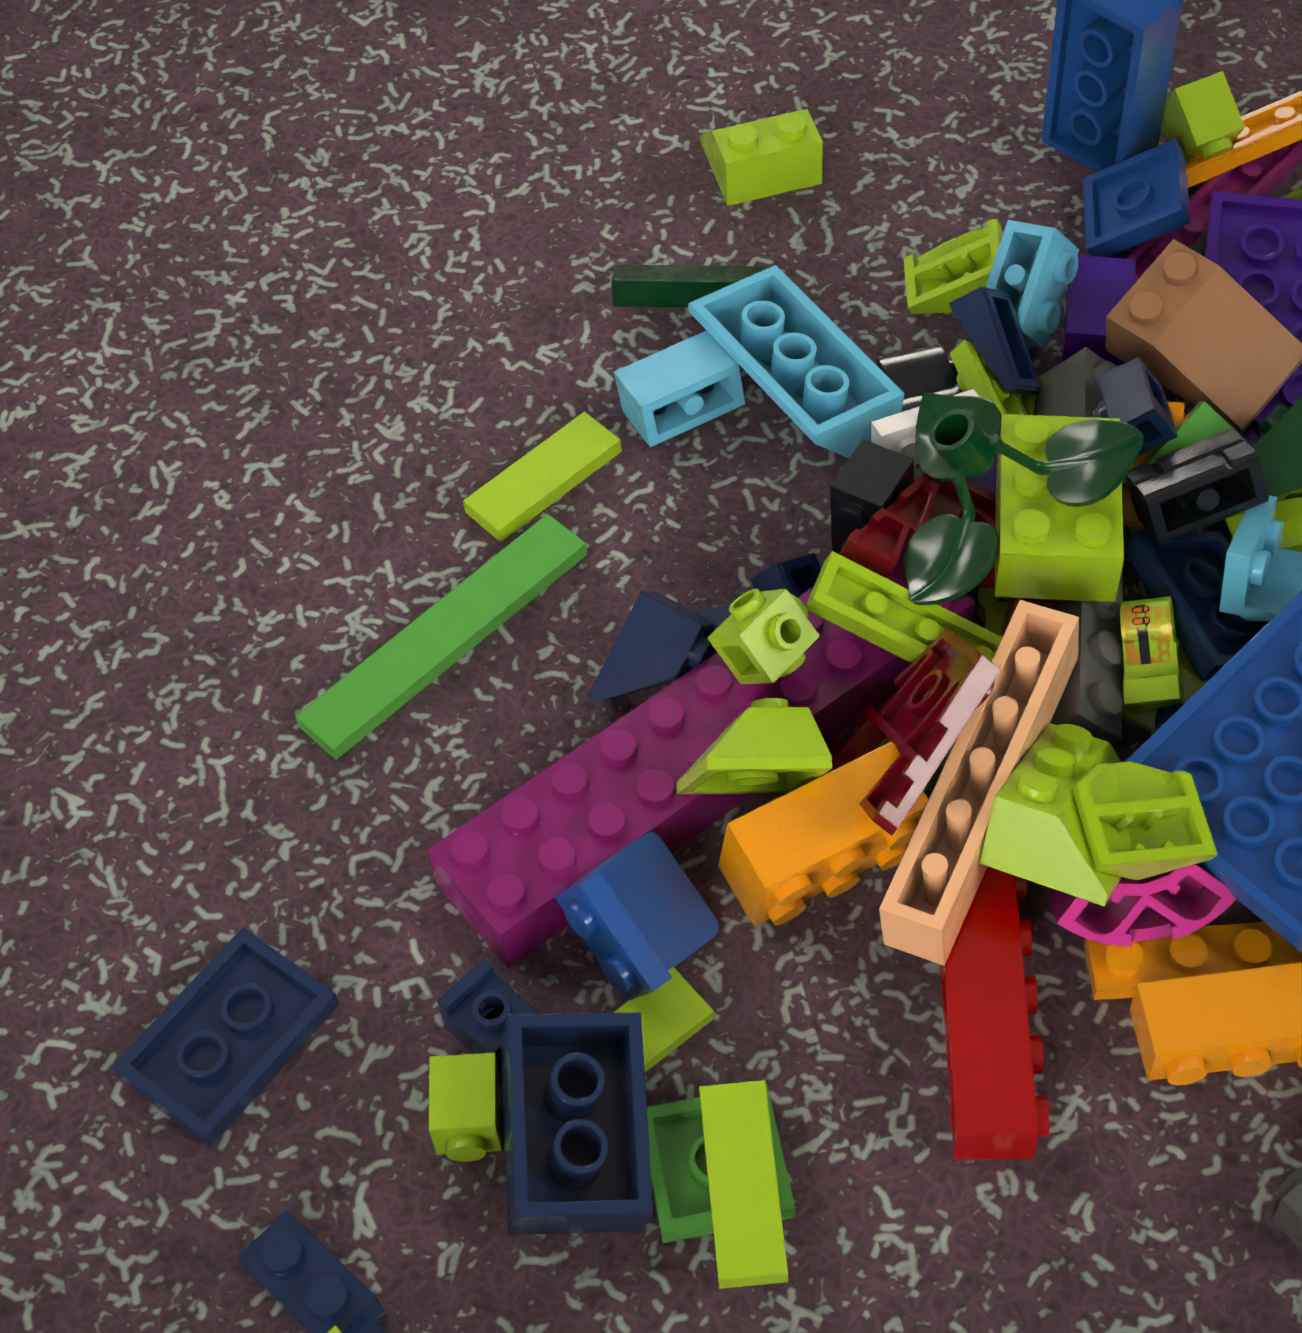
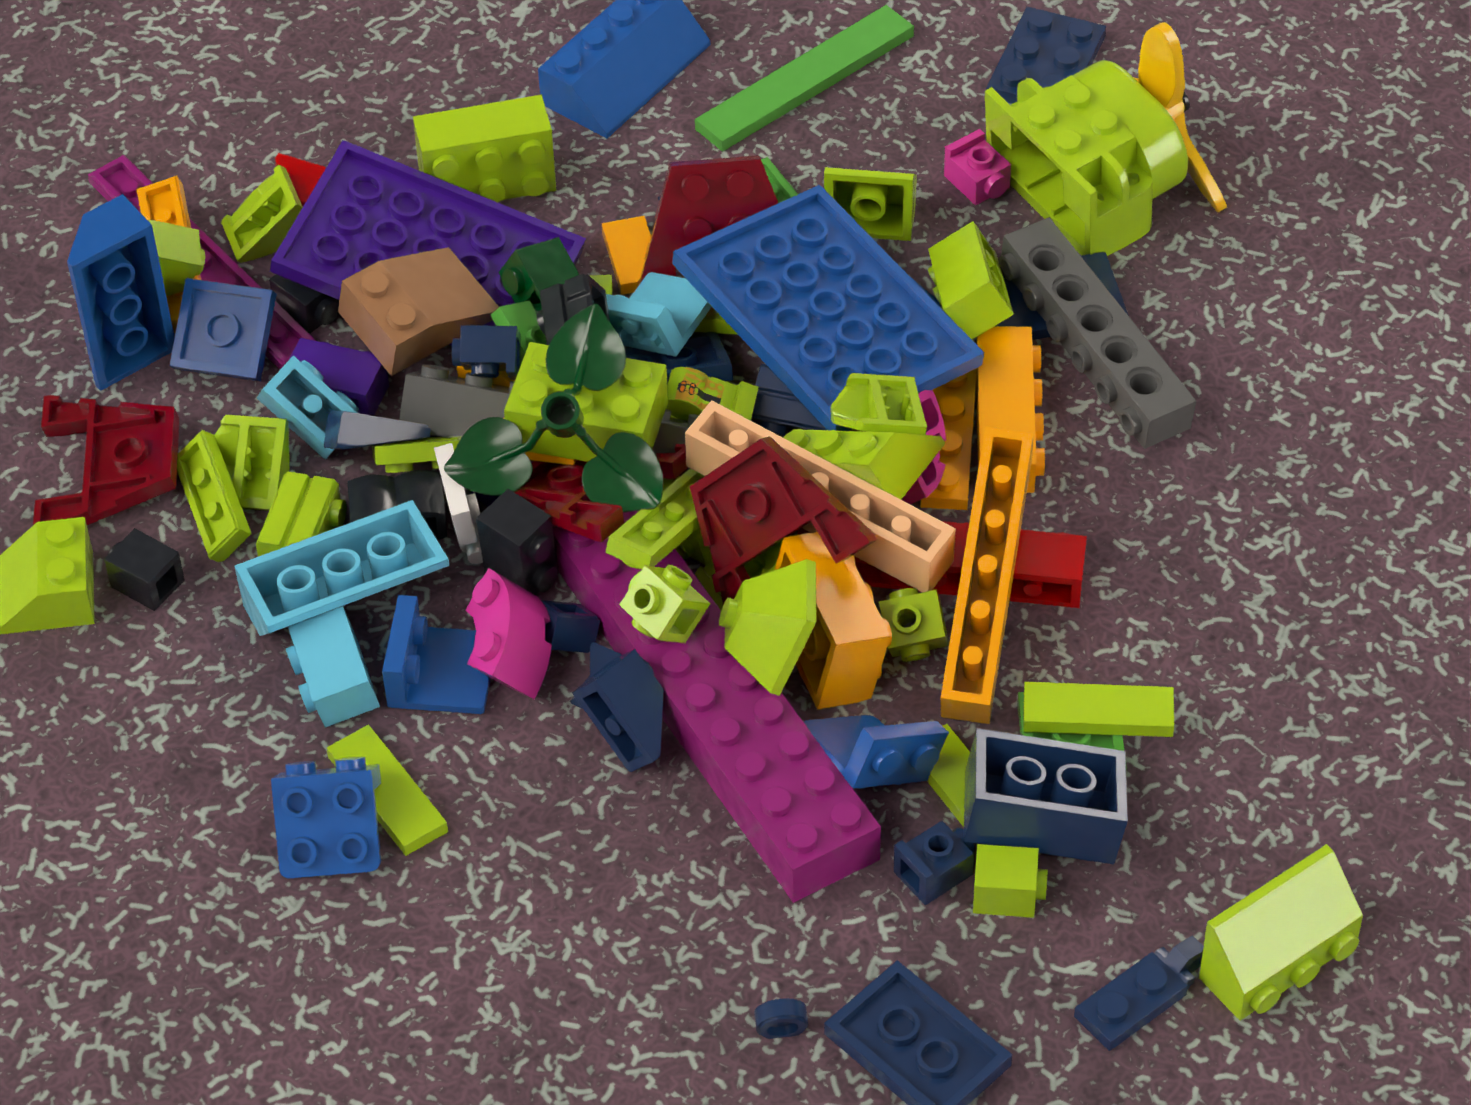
camera: 85 degrees left, 5 degrees down
(253, 885) = (781, 1018): none -> dark blue tile
(440, 636) = (546, 877): bright green tile -> none
(487, 408) = (326, 818): none -> blue bracket
(672, 283) = (191, 657): dark green slope -> none
(710, 474) = (429, 665): none -> blue bracket
(760, 523) = (509, 634): none -> dark pink brick
(788, 216) = (144, 569): none -> black brick
(848, 943) = (929, 627): none -> lime brick
(883, 318) = (301, 511): none -> lime brick
(904, 247) = (212, 496): none -> lime tile
(913, 997) = (987, 575): none -> light orange brick
(934, 171) = (127, 456): none -> dark red wing

